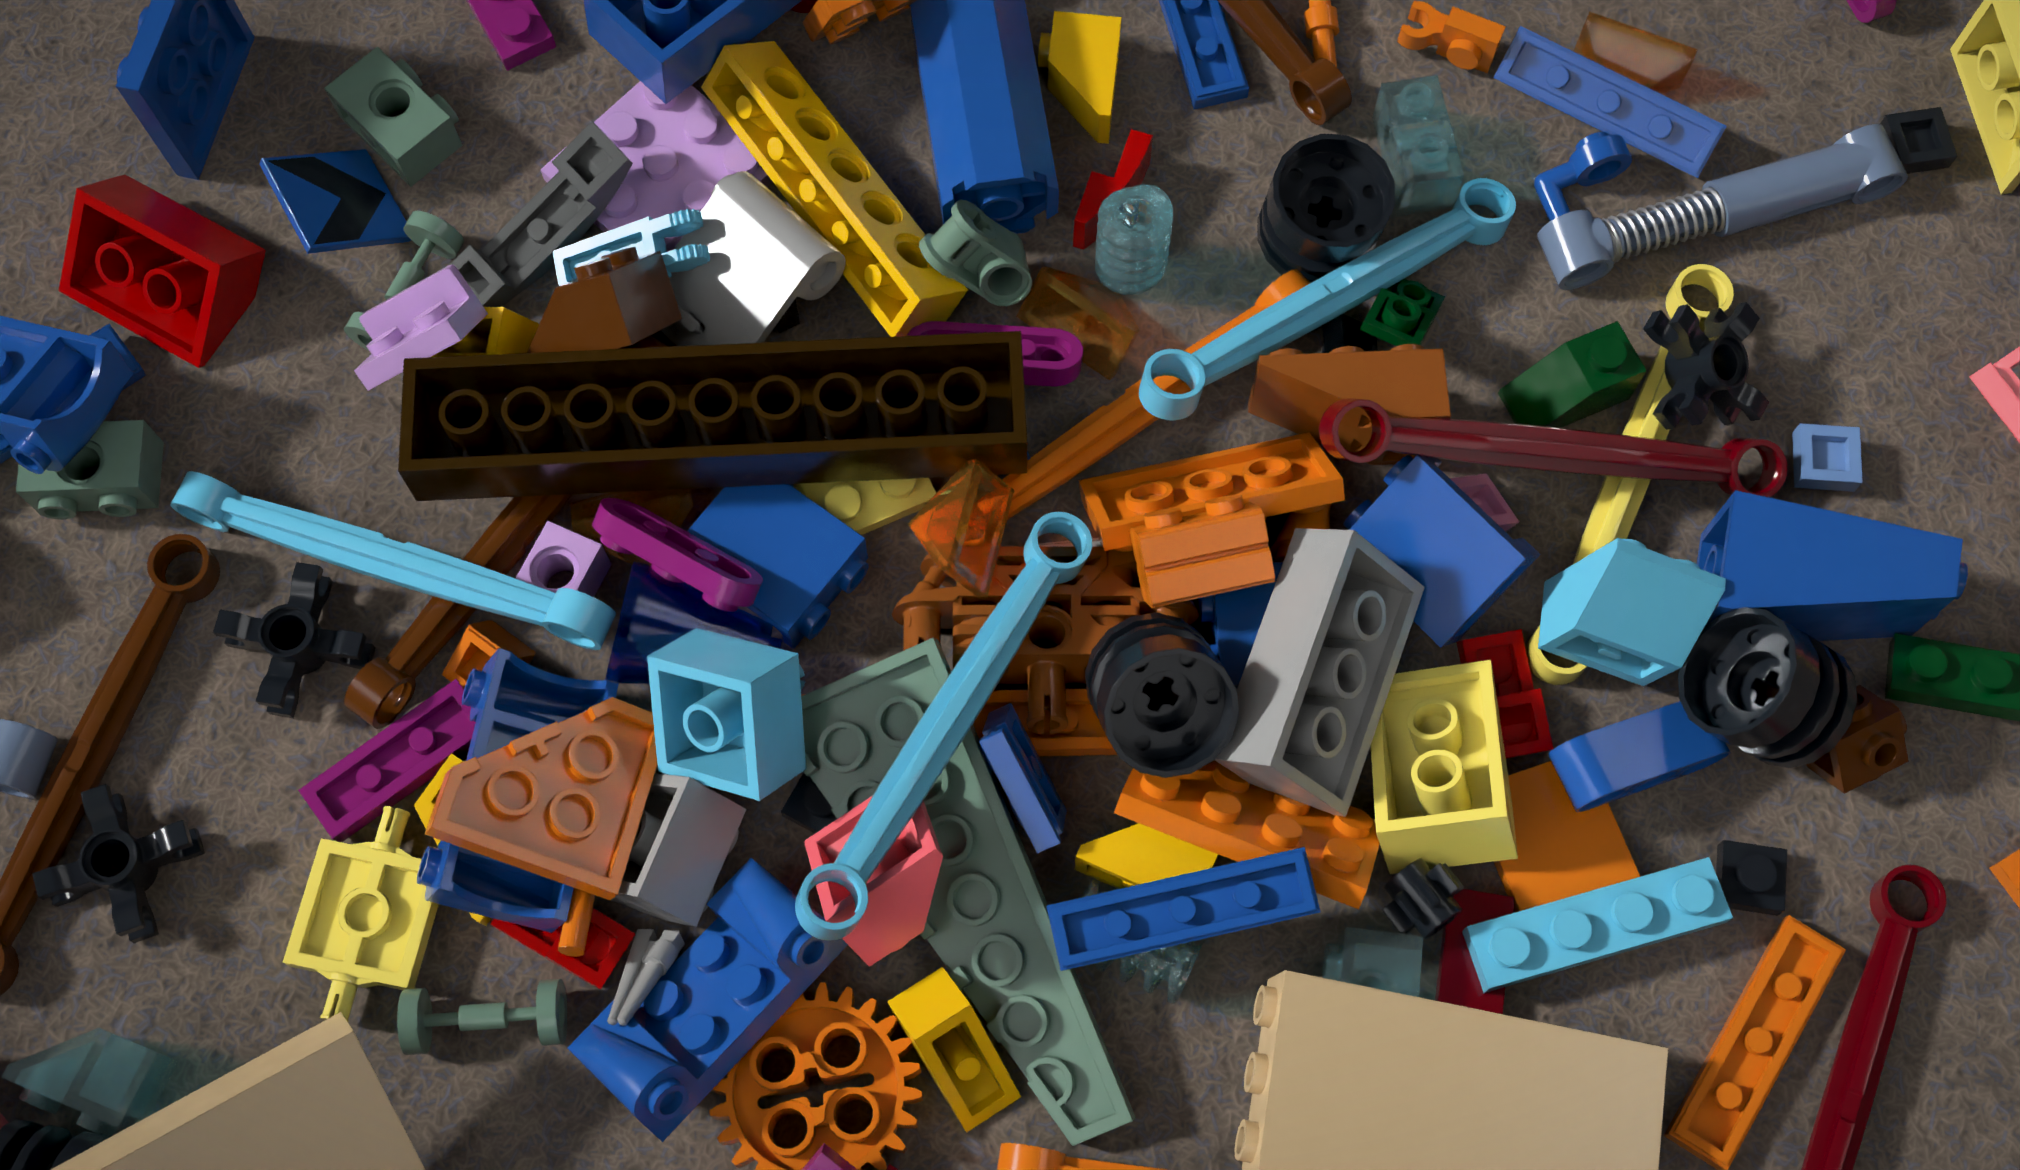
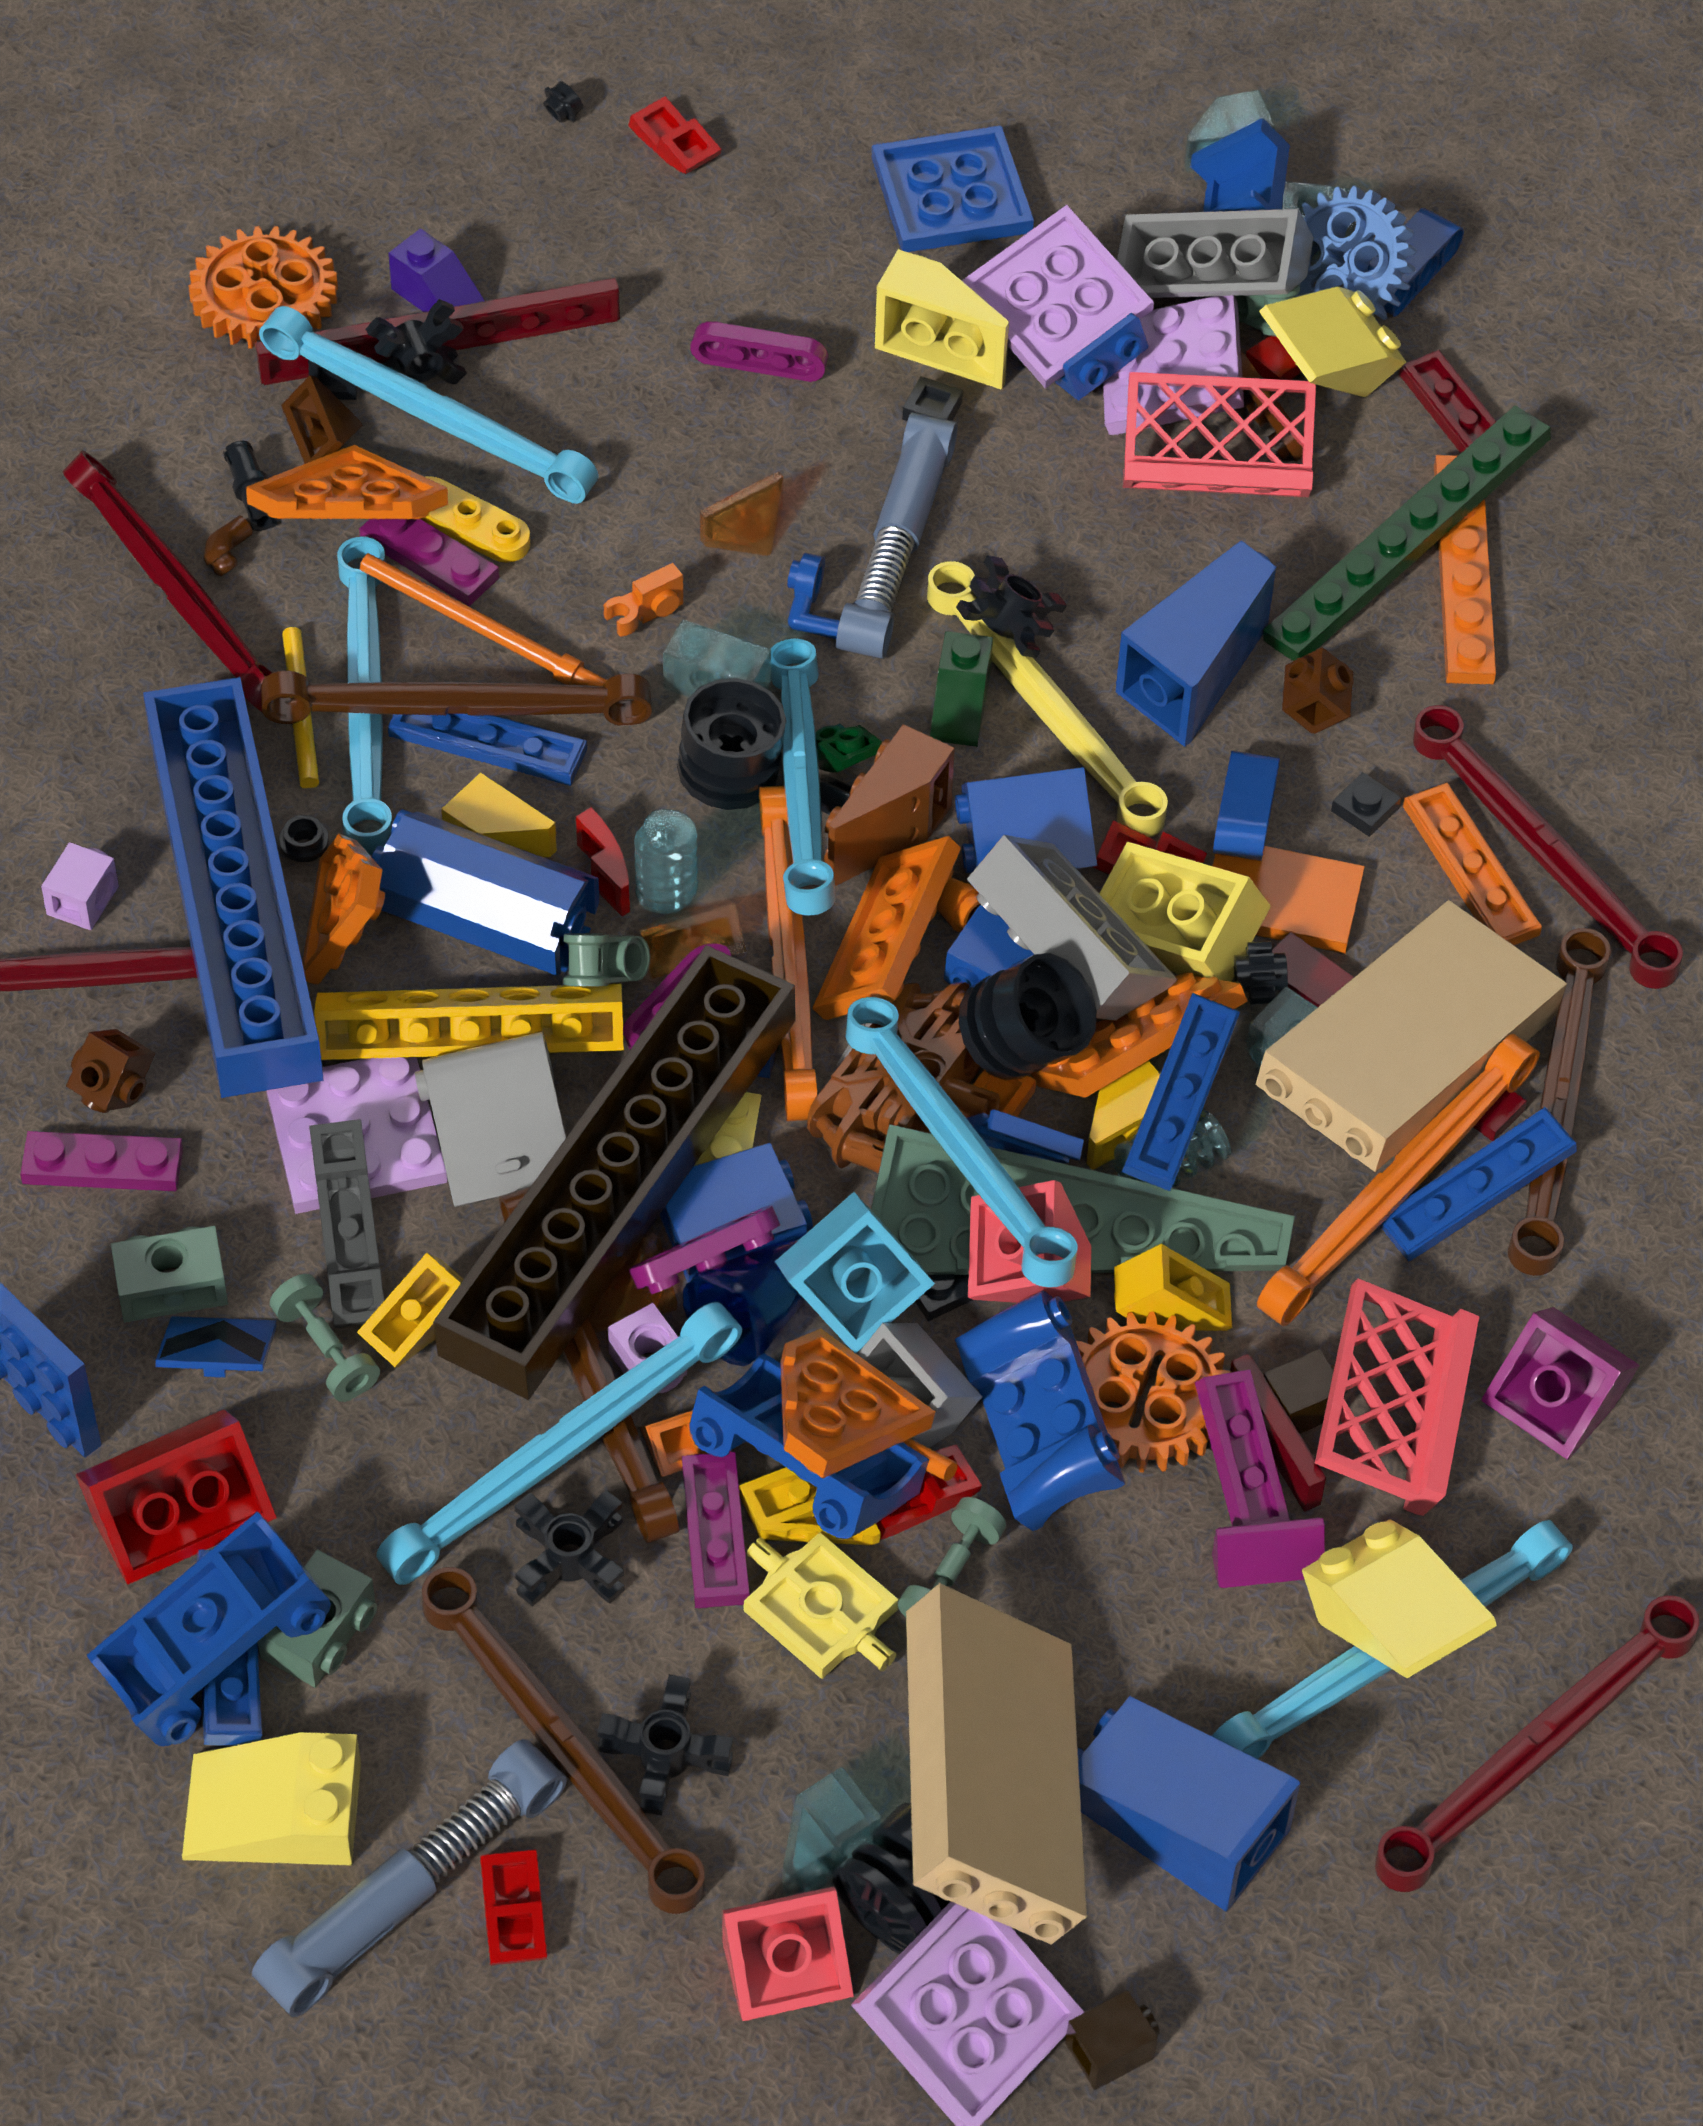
camera: 60 degrees left, 15 degrees down
(418, 324) = (398, 1316): lavender bracket -> none
(608, 304) = (474, 1195): reddish brown slope -> none
(644, 967) = (988, 1447): light grey piece -> none
(646, 236) = (425, 1180): medium azure hinge -> none
(966, 525) = (810, 1074): clear orange slope -> none
(1201, 551) = (944, 940): orange brick -> none
(1554, 449) = (1010, 717): dark red piece -> none
(1596, 924) = (1341, 896): medium azure plate -> none
(1609, 101) = (767, 547): blue tile -> none
(1628, 611) = (1154, 743): medium azure slope -> none
(1767, 688) = (1259, 703): black wheel -> none
(1827, 457) = (1117, 590): medium blue plate -> none

